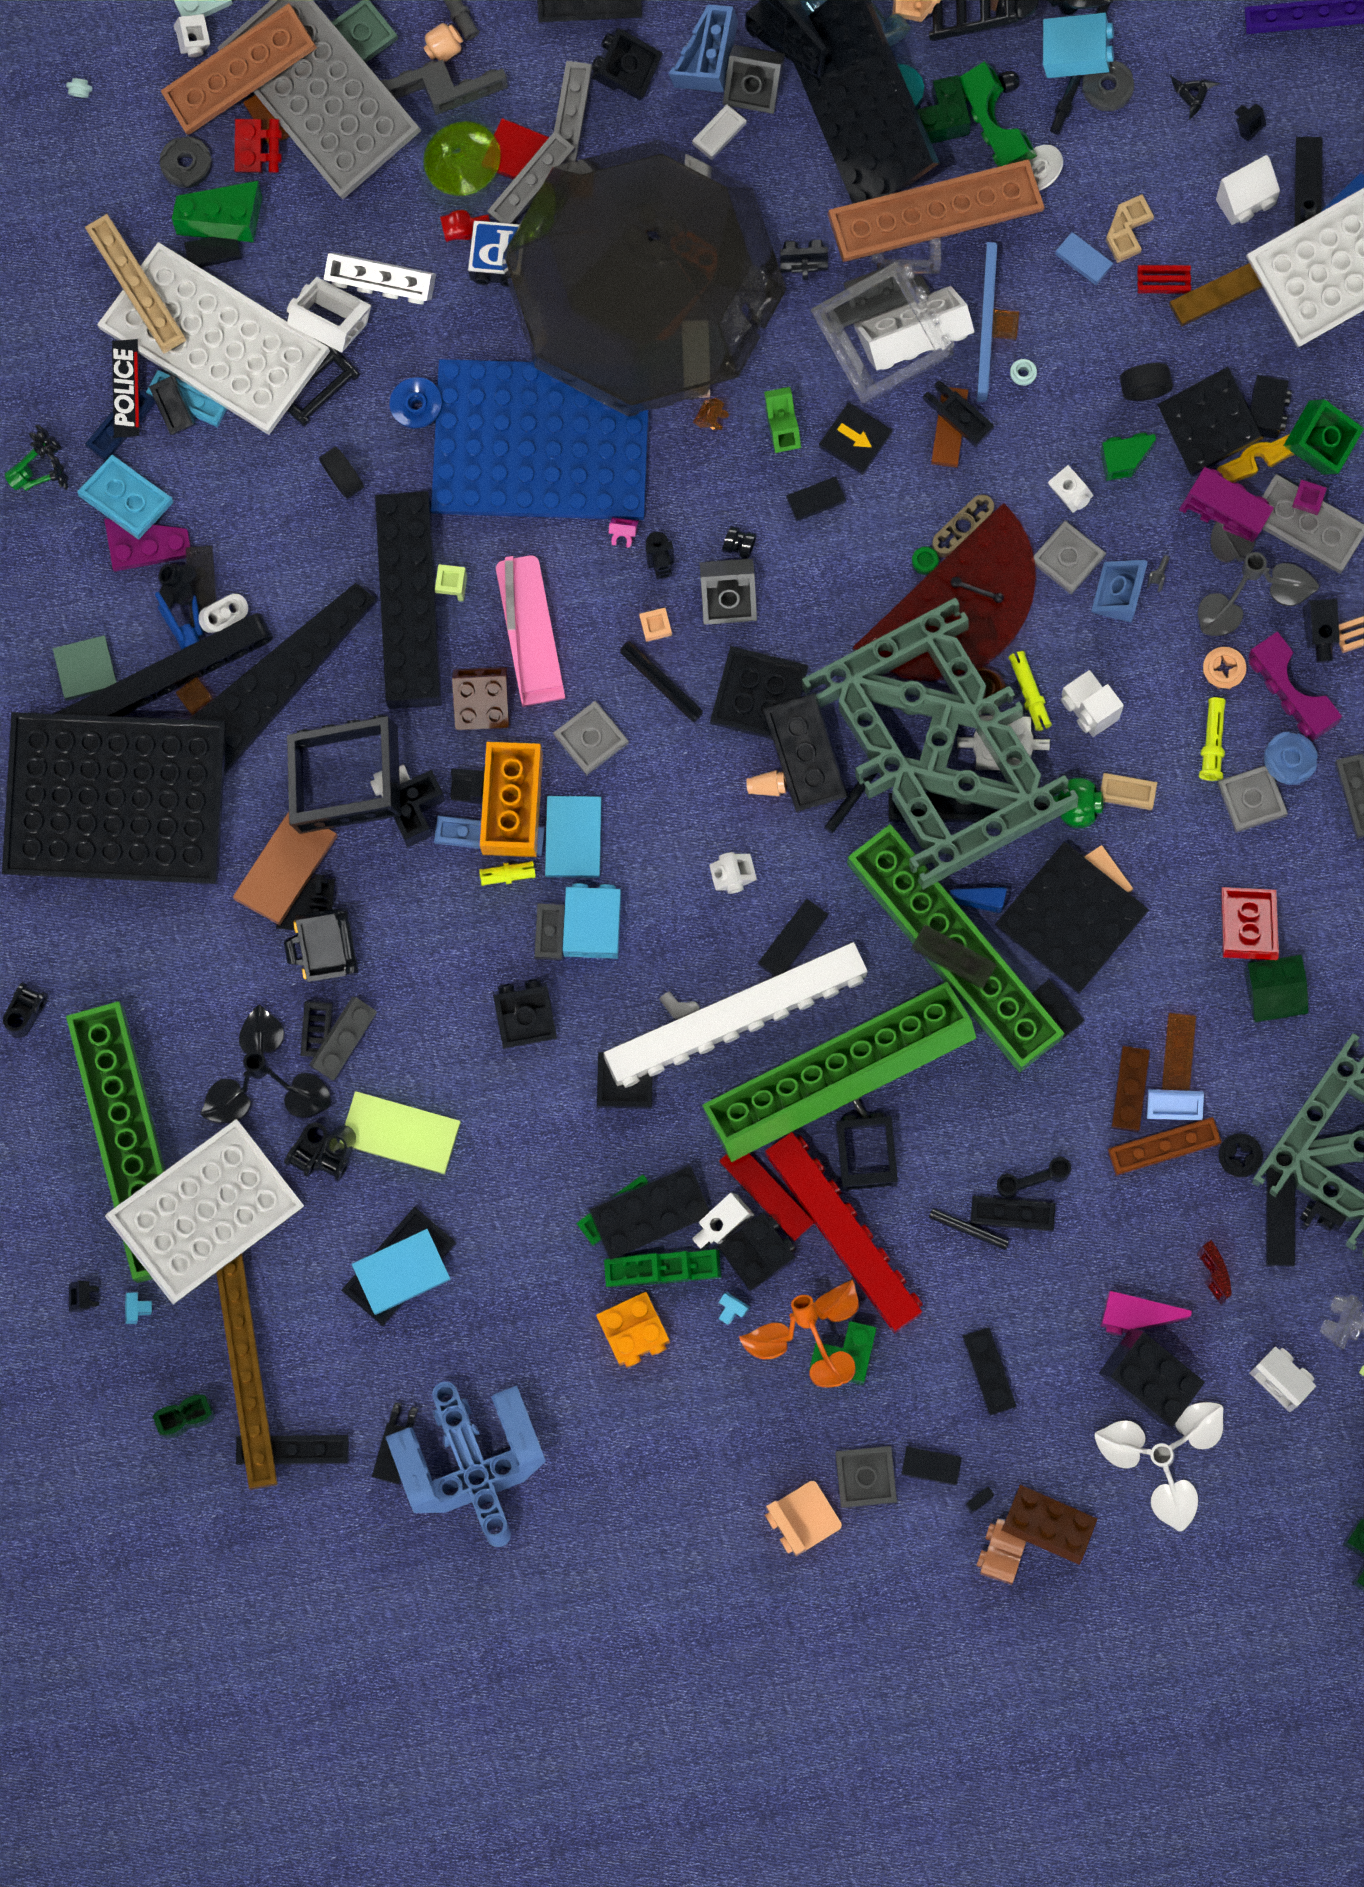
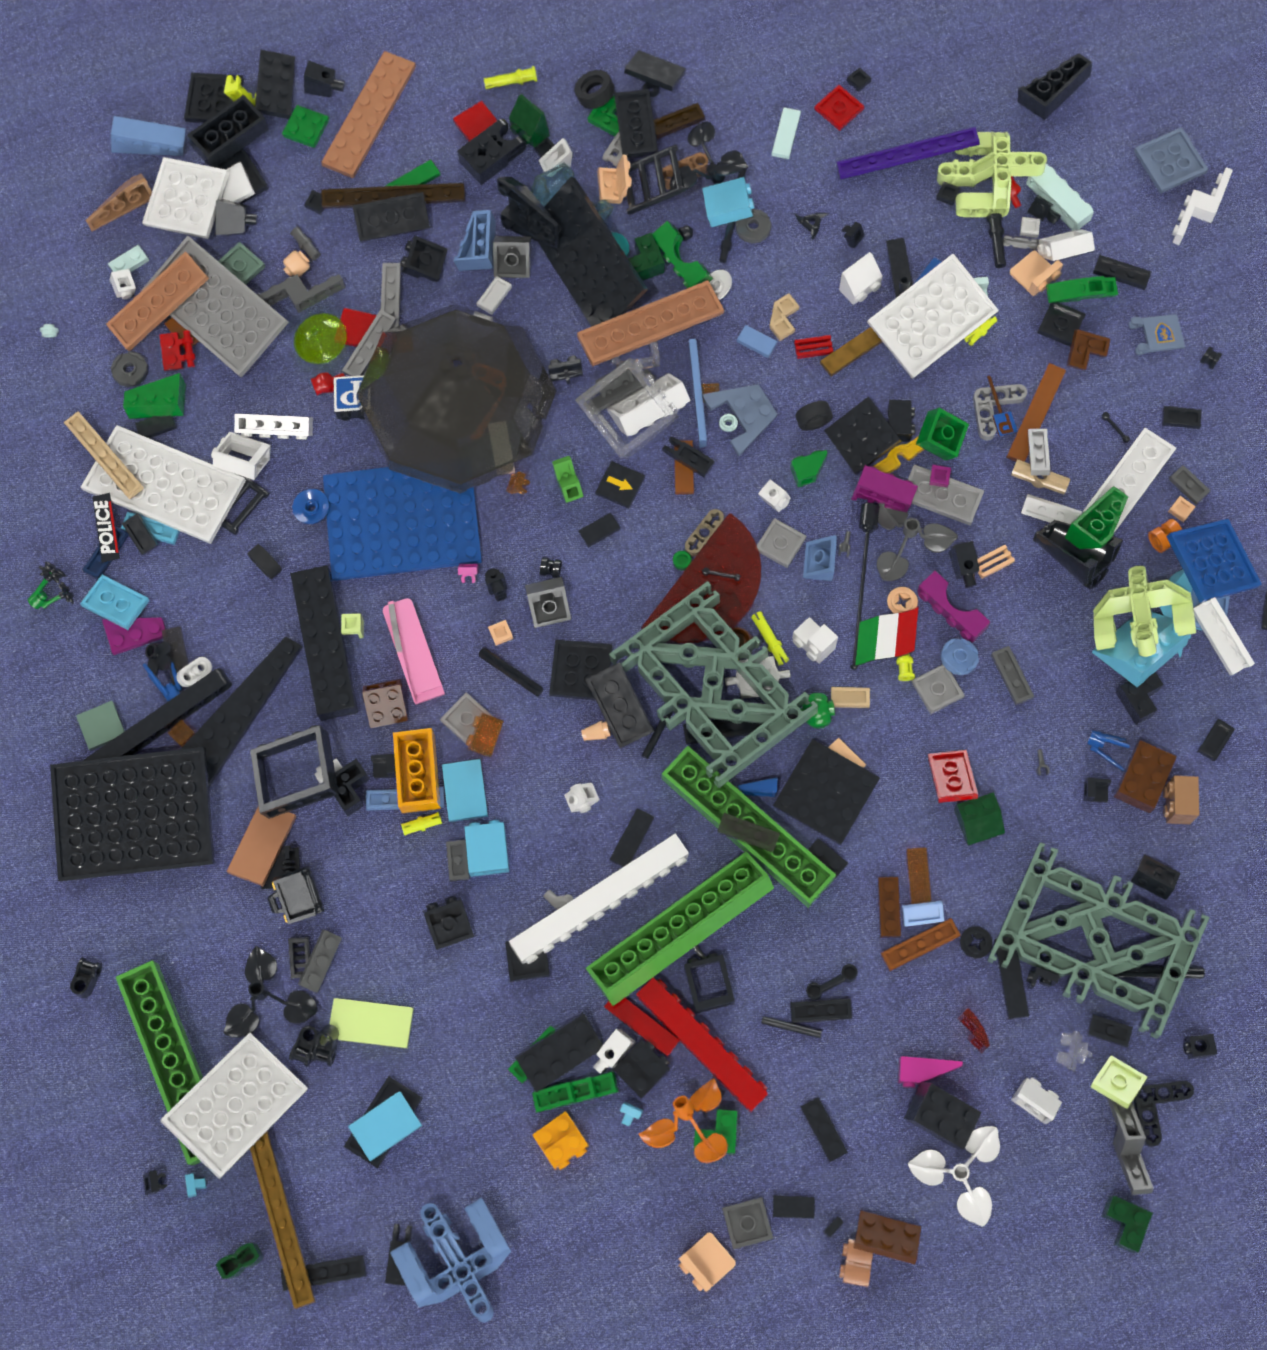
camera: 10 degrees left, 5 degrees down
(612, 764) = (484, 735): none -> clear orange brick
(1058, 358) = (749, 407): none -> sand blue wing
(1190, 711) = (886, 634): none -> flag

